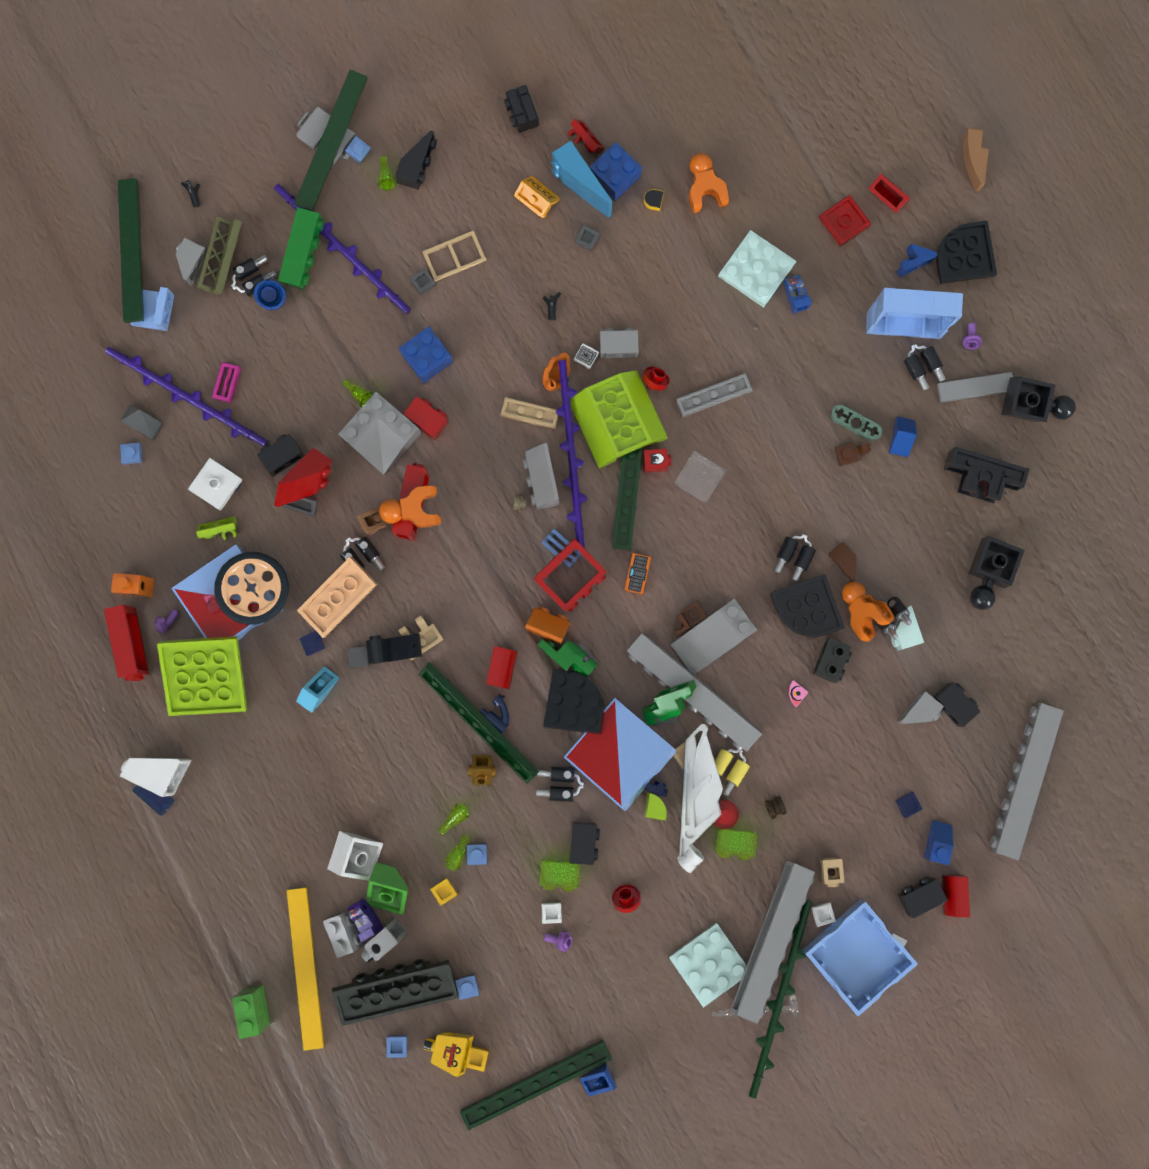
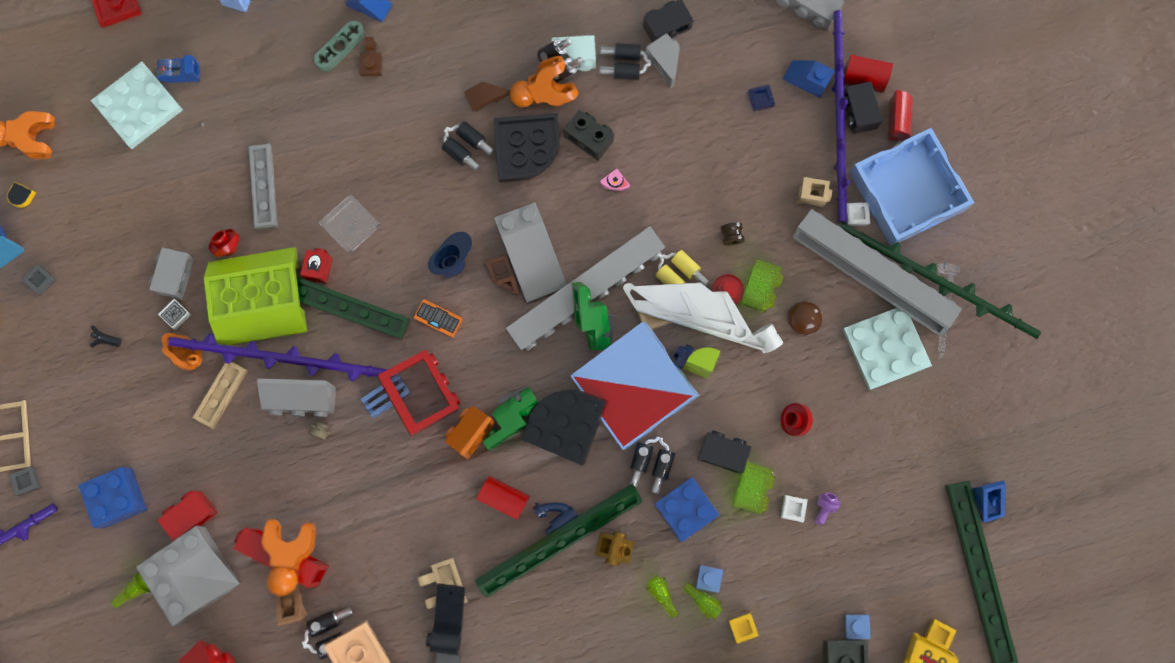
camera: 75 degrees left, 5 degrees down
(528, 822) = (686, 509): none -> blue brick
(691, 570) = (450, 256): none -> dark blue piece
(717, 887) = (805, 318): none -> reddish brown hair
(917, 671) = (625, 70): none -> black piece
(918, 877) = (840, 104): none -> dark purple plant
(923, 934) = (900, 116): none -> red brick

